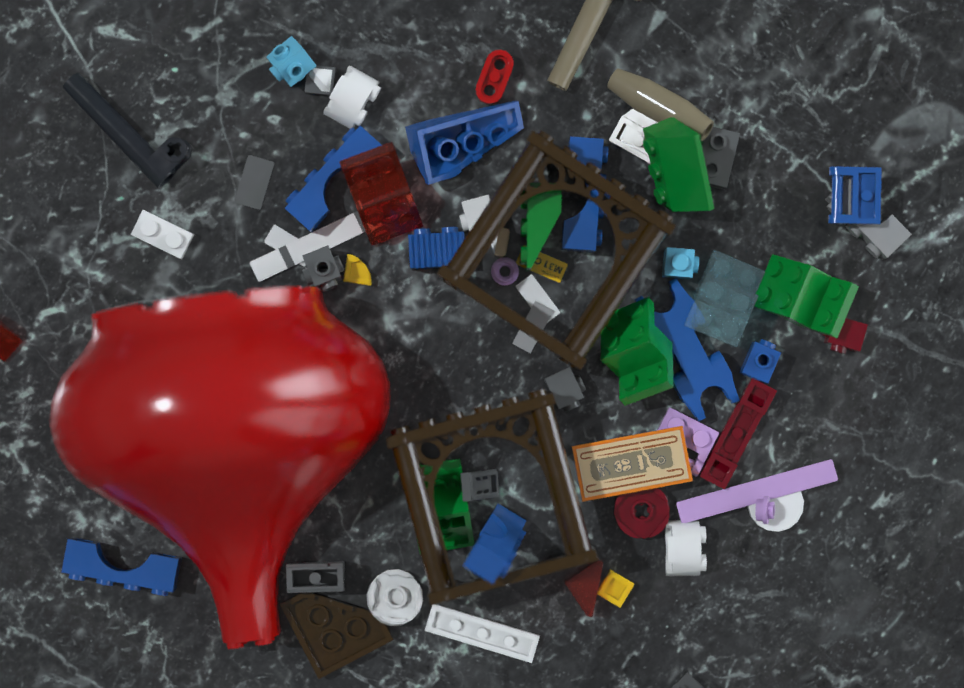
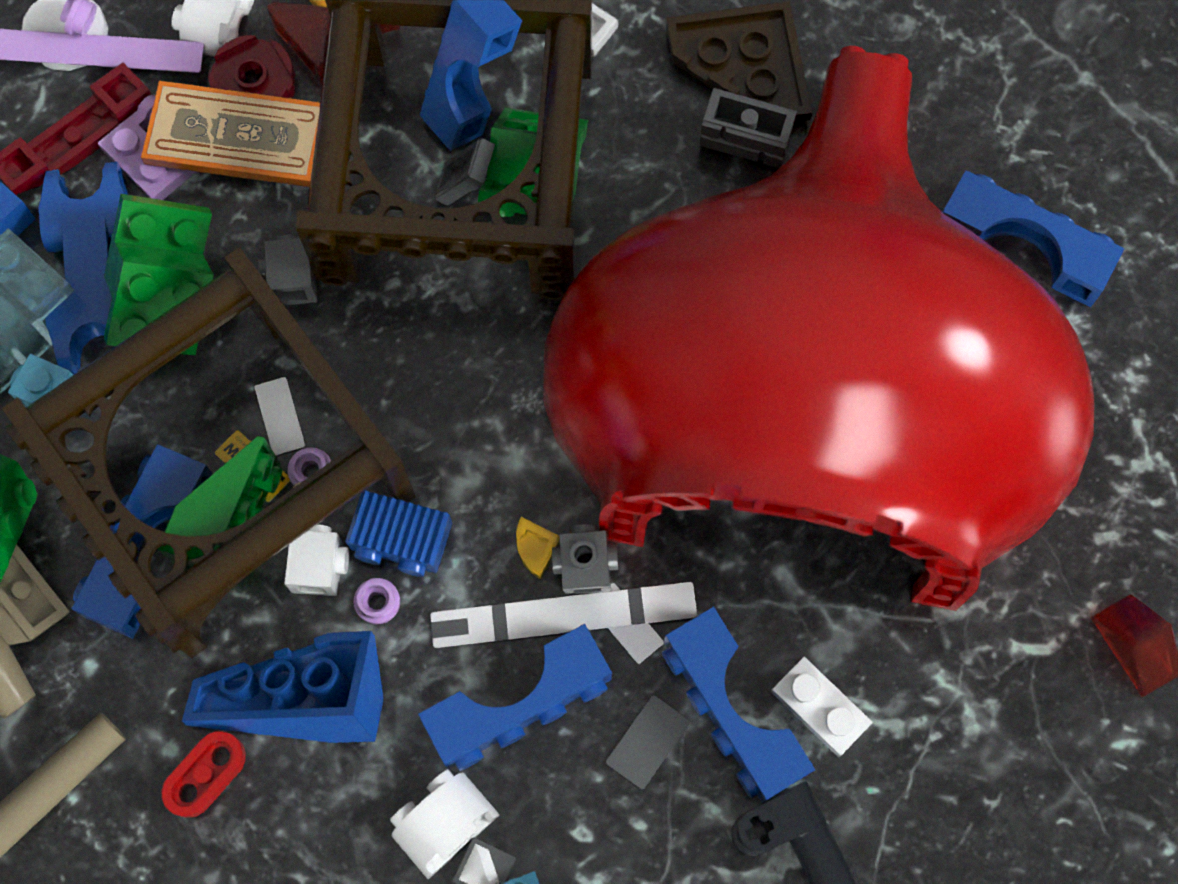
camera: 155 degrees left, 15 degrees down
(183, 194) = (766, 757): none -> blue arch
(381, 193) = (450, 644): clear red bracket -> none
(394, 597) = (644, 72): white tile -> none
(436, 198) = (374, 587): none -> lavender plate
(539, 317) = (297, 383): light grey sticker -> none
(615, 550) = (305, 31): none -> clear red slope

